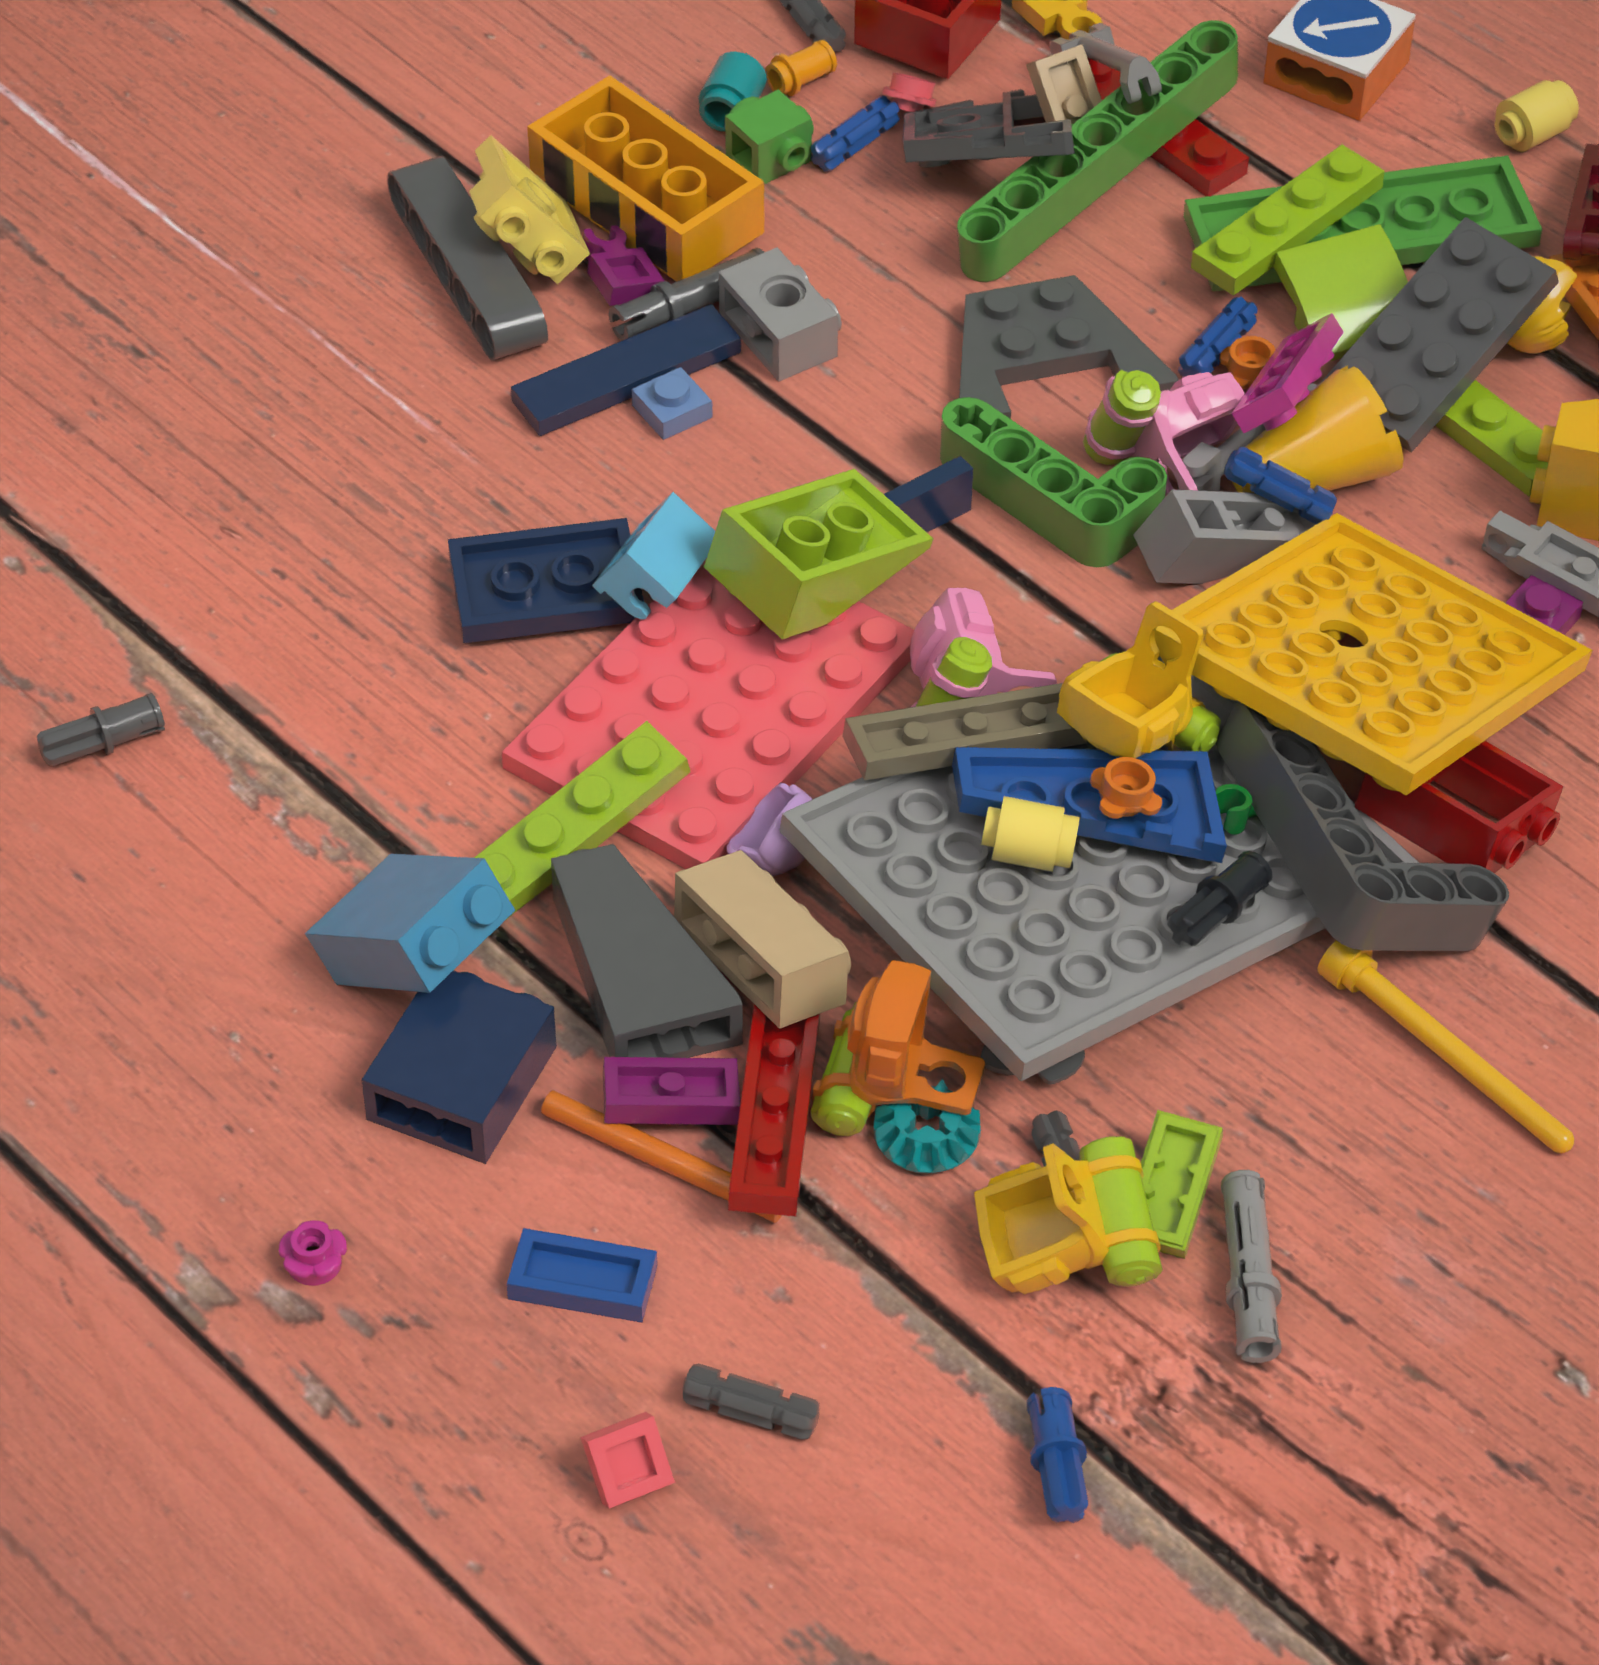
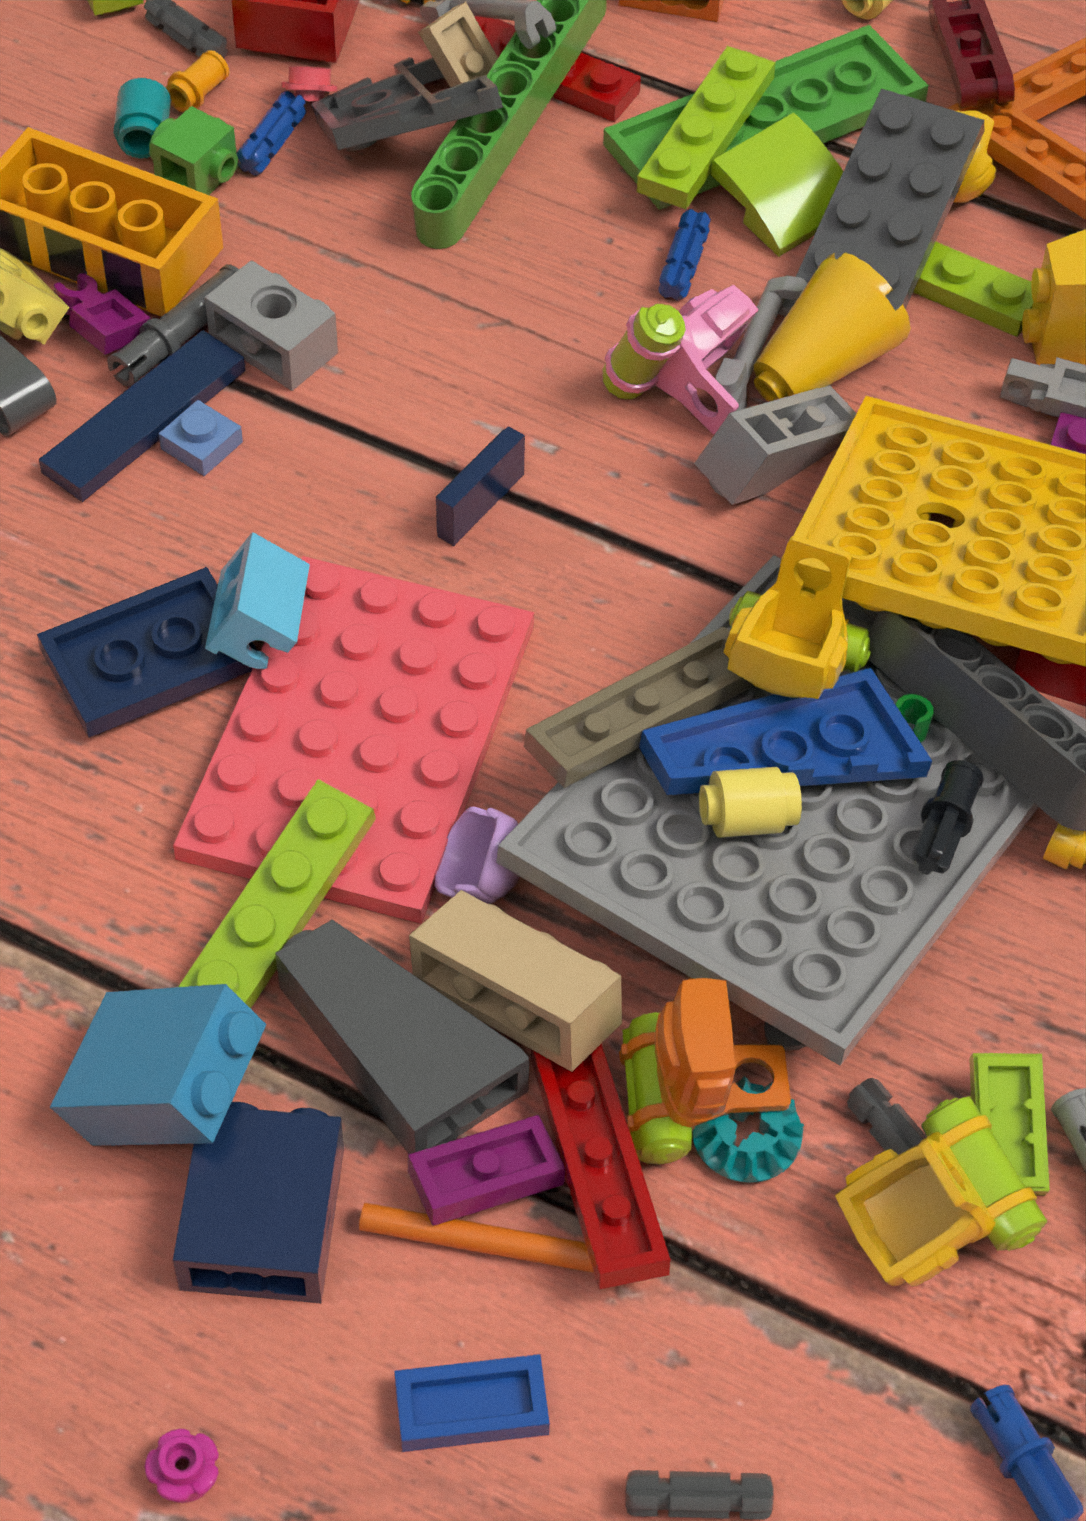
camera: 20 degrees left, 5 degrees up
(812, 550) = (409, 558): lime slope -> none
(959, 652) = (594, 633): bright pink piece -> none
(1045, 333) = (520, 286): dark grey wing -> none
(1046, 490) = (593, 438): bright green beam -> none
(1126, 788) = (824, 729): orange plate -> none
(1247, 358) = (724, 267): orange plate -> none
(1280, 485) = (813, 382): blue axle -> none
(1287, 375) = (780, 275): dark pink plate -> none

